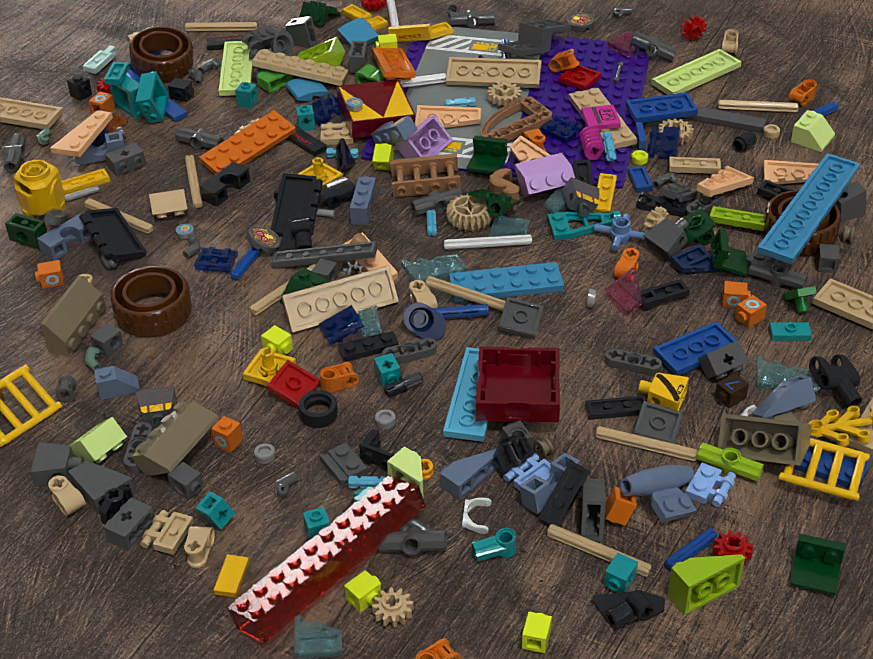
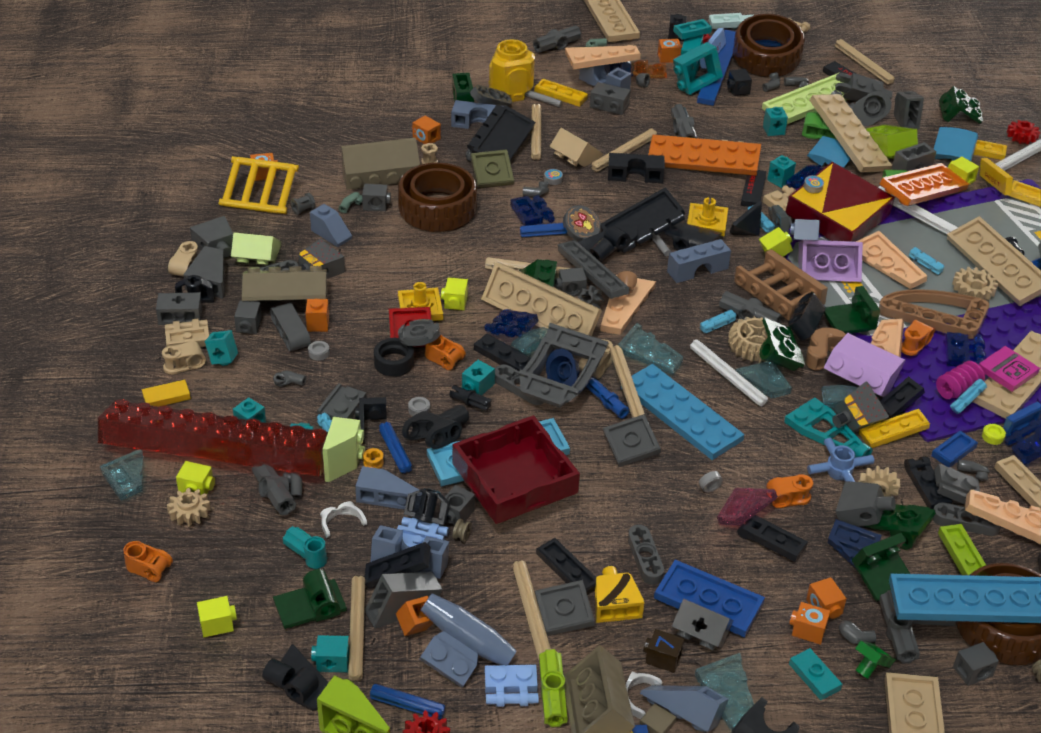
camera: 55 degrees right, 0 degrees up
(142, 254) = (492, 168): none -> olive tile
(223, 458) = (290, 327): none -> dark grey beam
(314, 378) = (419, 332): none -> dark grey tile
(355, 12) = (993, 131): yellow tile -> none
(362, 142) = (780, 218): none -> dark grey hinge
(418, 292) = (577, 344): none -> dark grey wedge
(423, 450) = (395, 447): none -> blue axle
(425, 412) = (442, 428): none -> black connector
(472, 176) = (806, 316): none -> black beam
(555, 568) = (305, 604): none -> dark green piece
(770, 298) = (854, 634): none -> dark grey arm

